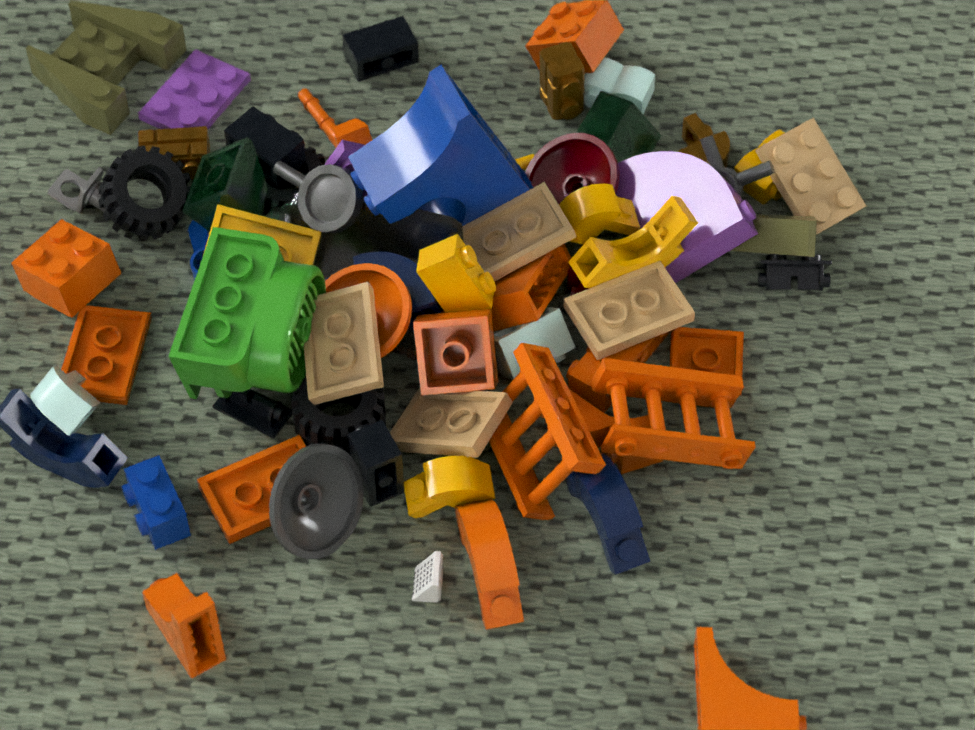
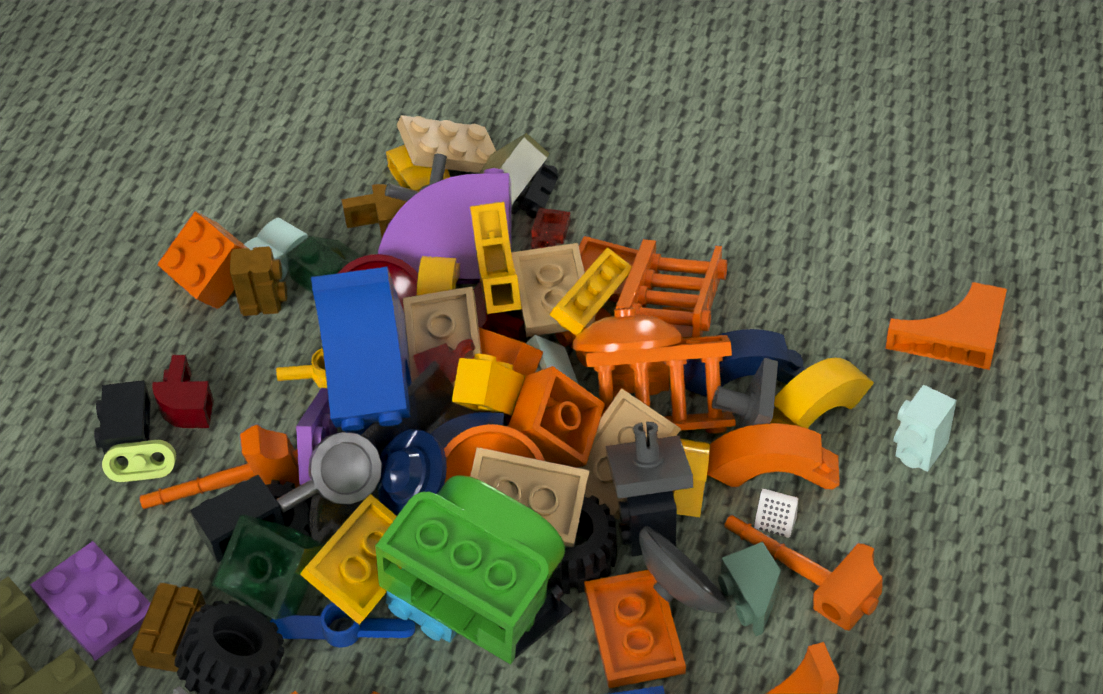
camera: 70 degrees left, 5 degrees down
(333, 575) = (753, 582): none -> sand green slope
(340, 74) = (140, 459): none -> yellowish green plate
(352, 248) = (409, 466): none -> dark blue hat
(352, 656) = (843, 593): none -> orange piece
(409, 433) = (649, 464): none -> dark grey tile
(412, 74) = (181, 400): none -> dark red brick
(485, 239) = (442, 355): none -> clear red plate
(541, 520) = (758, 401): none -> dark grey tile
(556, 374) = (626, 332): none -> orange dish
(562, 682) = (924, 428): none -> light aqua brick
(584, 576) = (819, 389): none -> yellow arch
(623, 336) = (591, 292): none -> yellow plate
(740, 298) = (550, 228): none -> clear red plate

